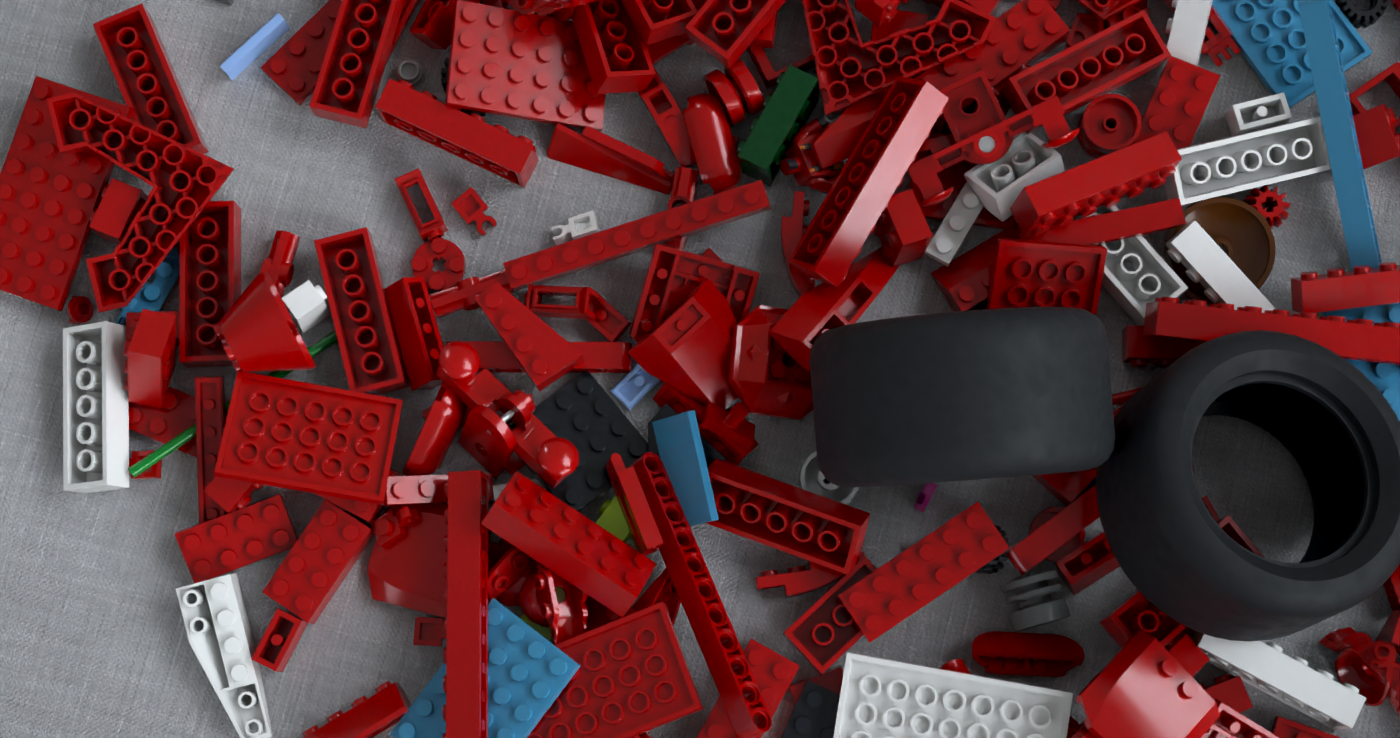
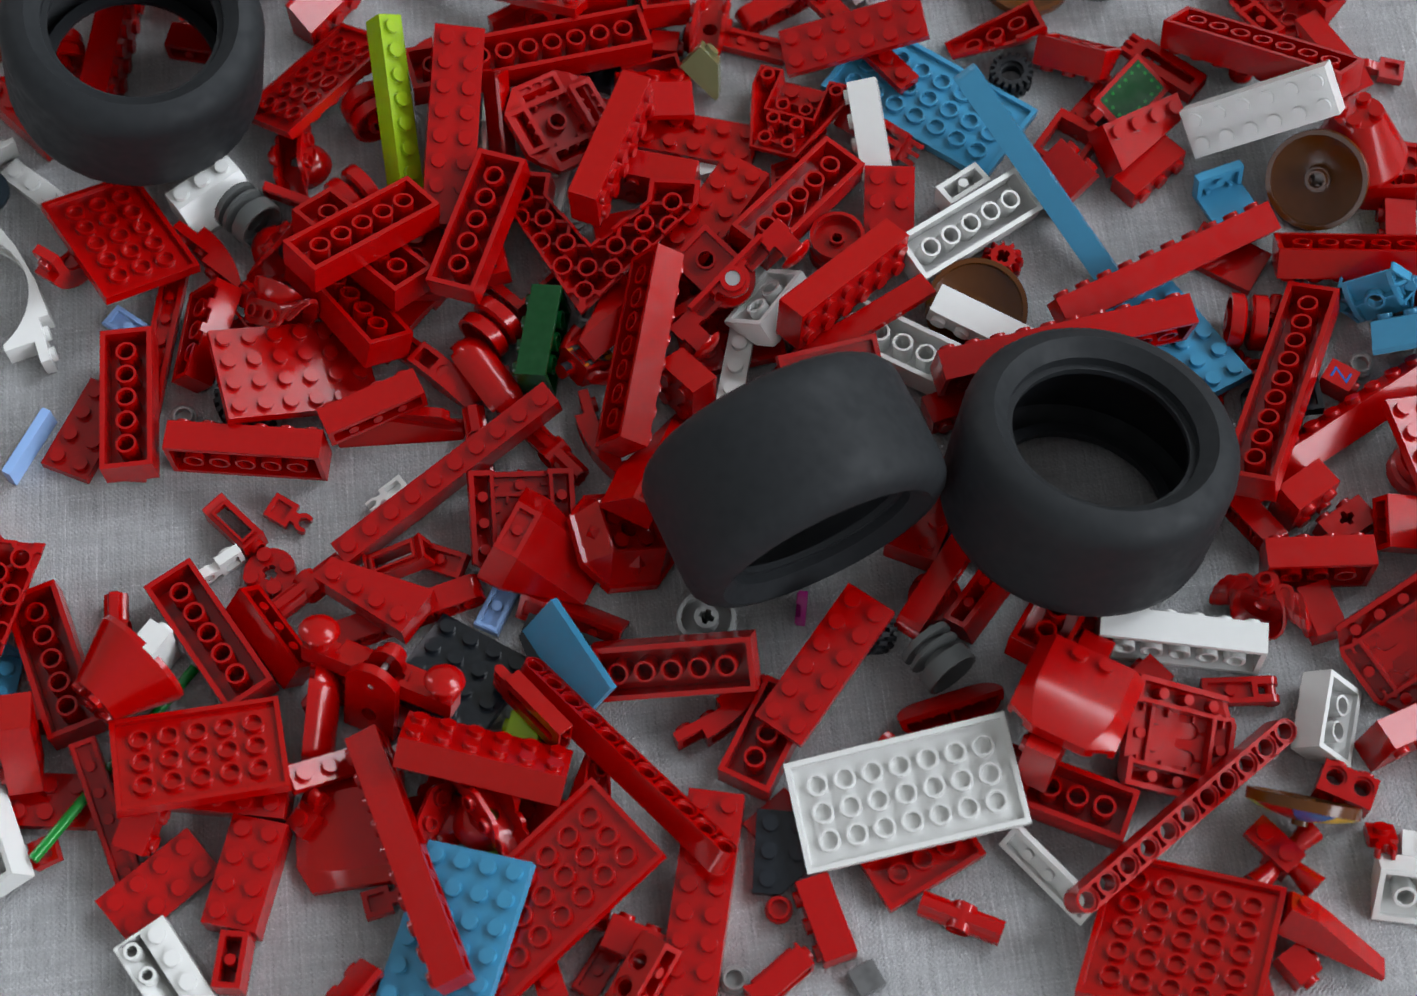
camera: 20 degrees left, 15 degrees down
(401, 238) = (225, 562): none -> white plate
(589, 135) = (372, 406): none -> red brick
(729, 423) = (596, 608): red tile -> none
(752, 248) = (556, 453): none -> red piece

